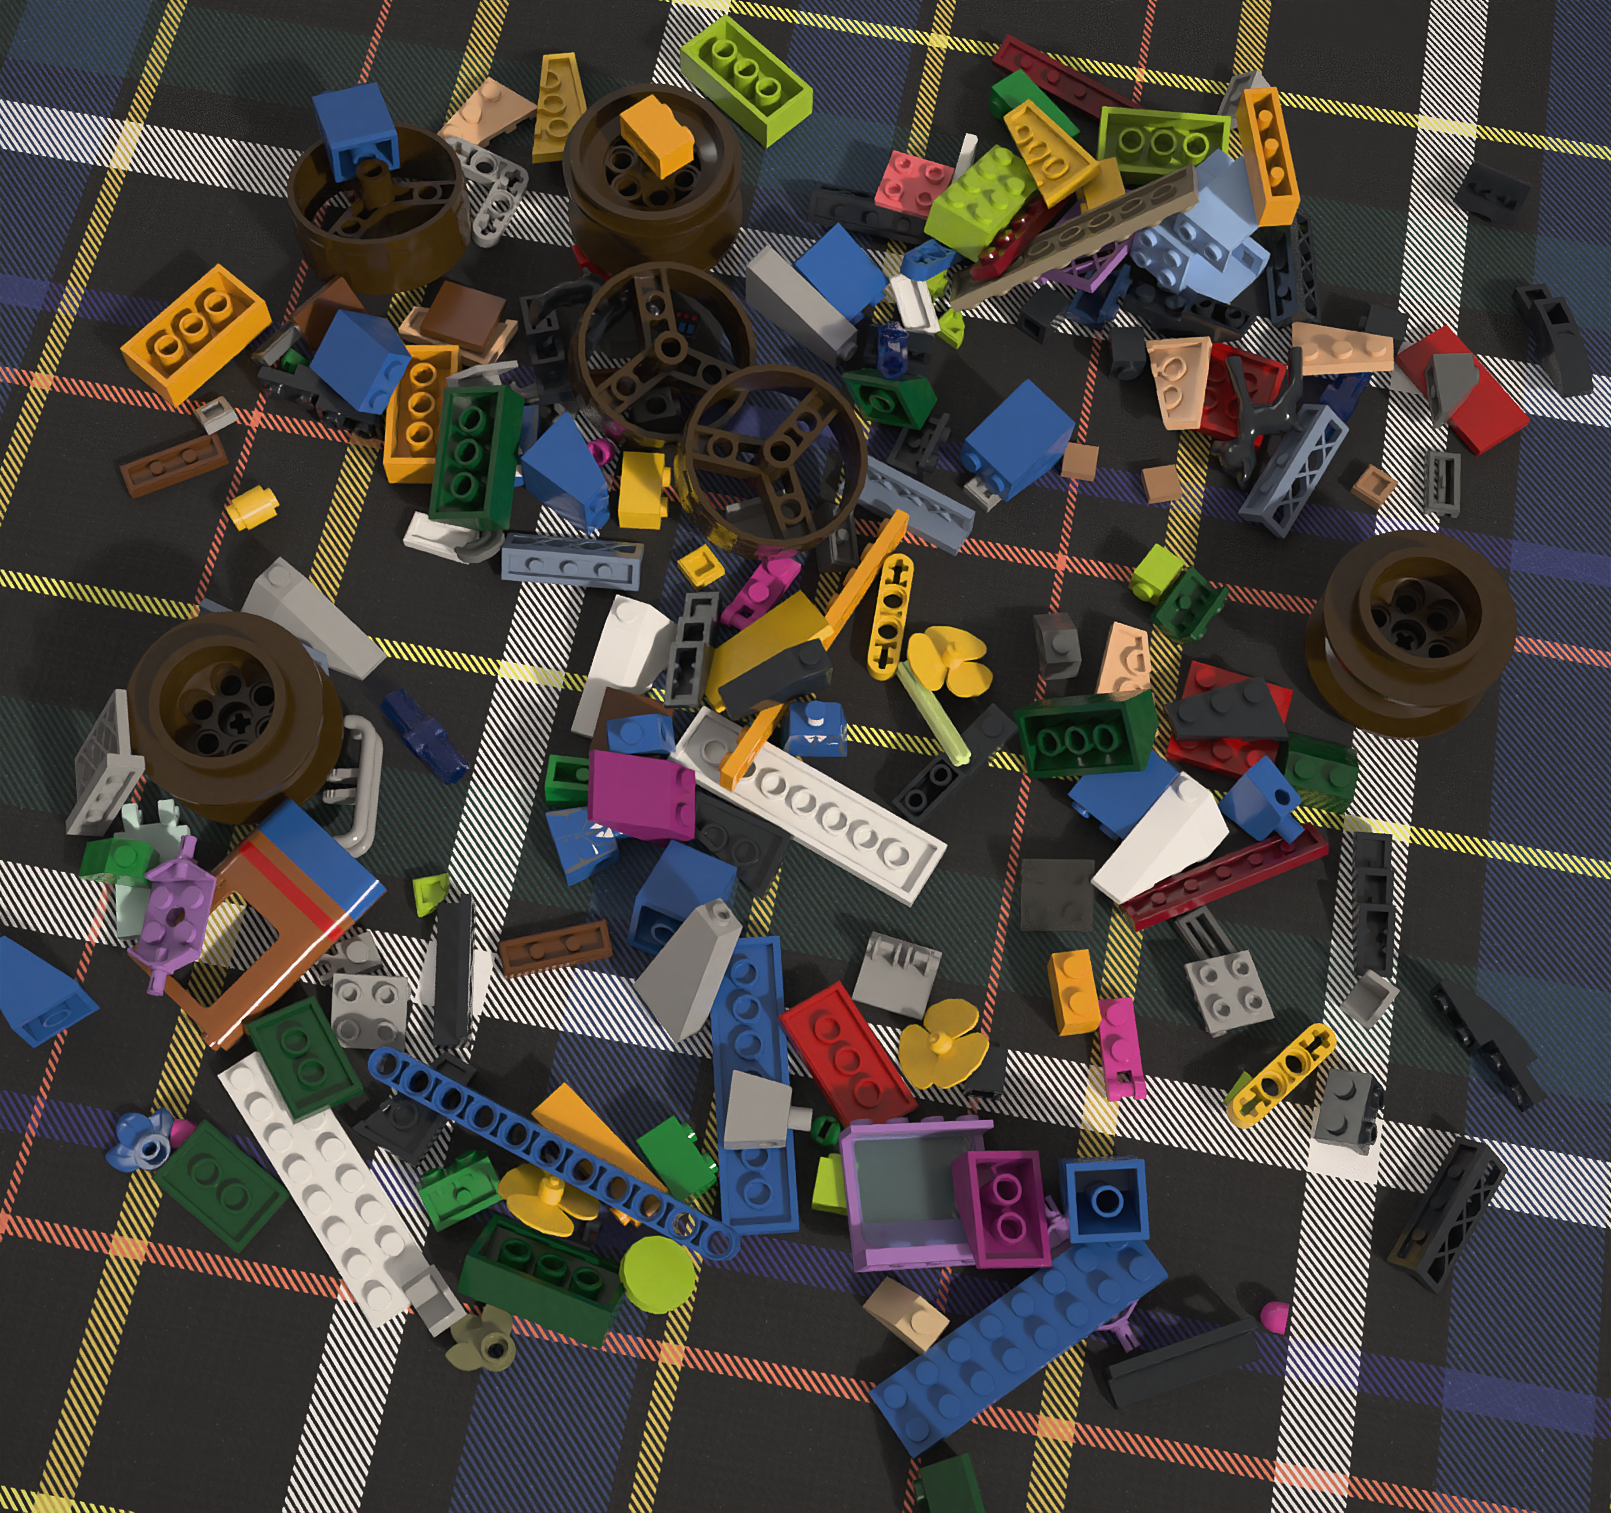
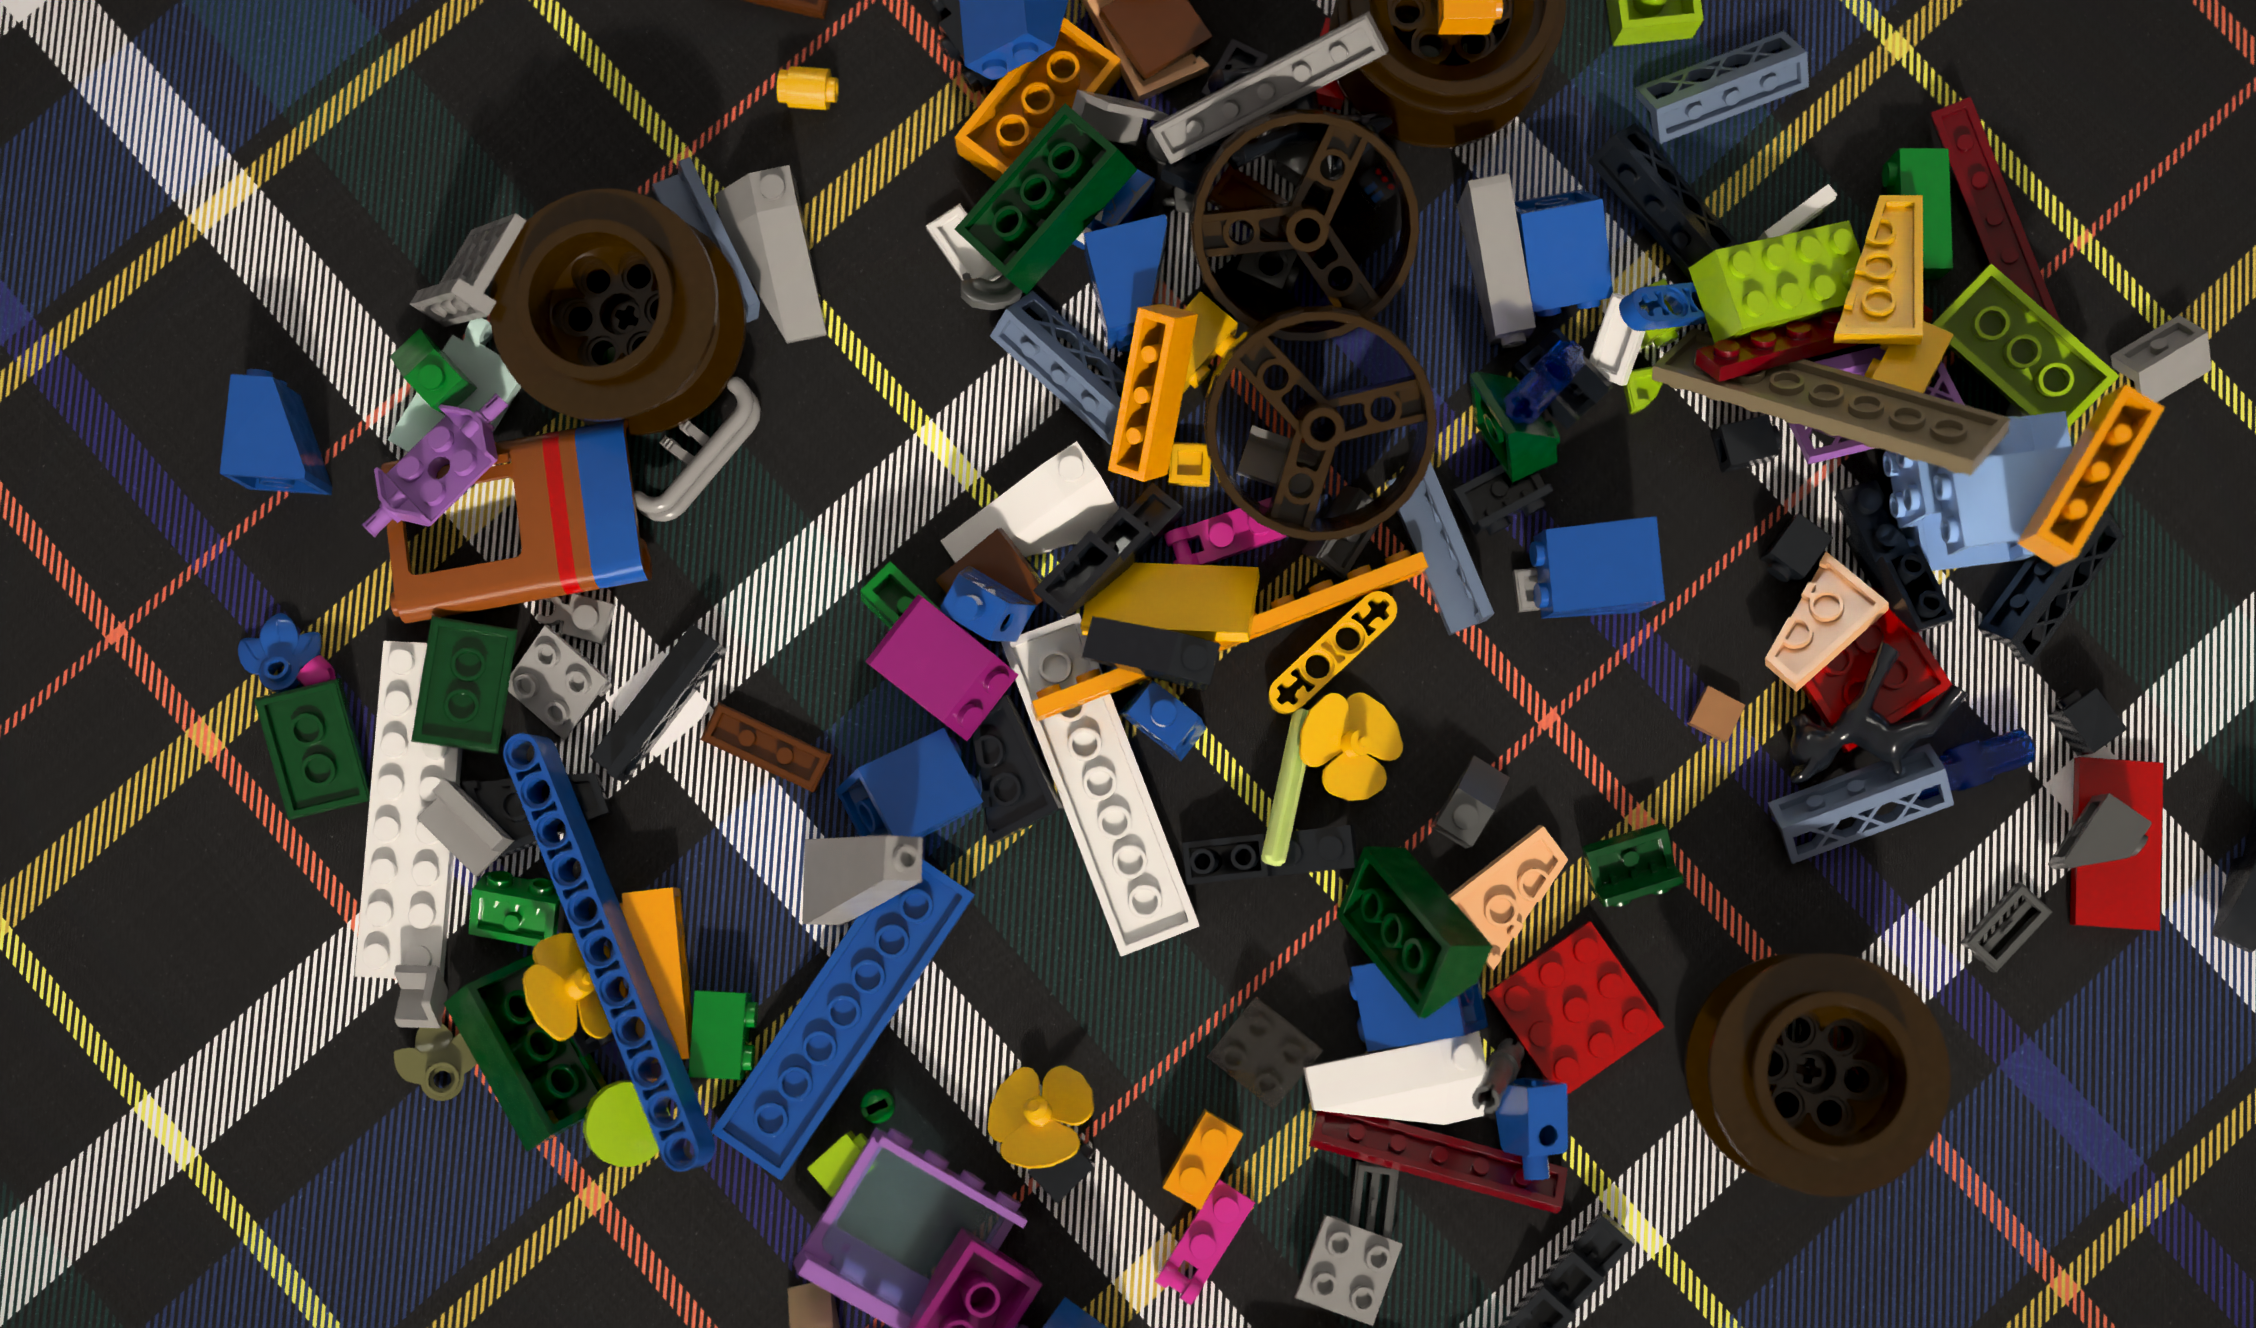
camera: 40 degrees right, 15 degrees up
(379, 1153) = (464, 828): none -> light grey panel
(424, 736) = (798, 447): clear blue piece -> none
(430, 892) = (694, 606): lime tile -> none
(575, 288) = (1270, 87): none -> light grey tile
(581, 844) = (849, 673): blue torso -> none
(602, 447) = (1183, 270): dark pink hinge -> none
(643, 527) = (1152, 391): none -> light orange brick
(761, 1113) = (822, 1054): light grey torso -> none
(846, 1058) = (944, 1060): red tile -> none
(855, 125) = (1727, 88): none -> sand blue fence
(897, 975) = (1056, 1012): light grey hinge -> none
(912, 184) = (1723, 205): coral bracket -> none
(1079, 461) = (1653, 630): medium nougat tile -> none
(1100, 306) = (1813, 480): dark blue bracket -> none
(1155, 574) = (1626, 807): lime brick -> none
(1219, 784) = (1501, 1070): none -> dark grey pin
(1229, 712) = (1576, 1005): black wing -> none
(1320, 772) = (1620, 1125): dark green slope -> none
(1341, 350) = (2018, 712): light nougat wing -> none
(1374, 487) = (1932, 878): medium nougat tile -> none

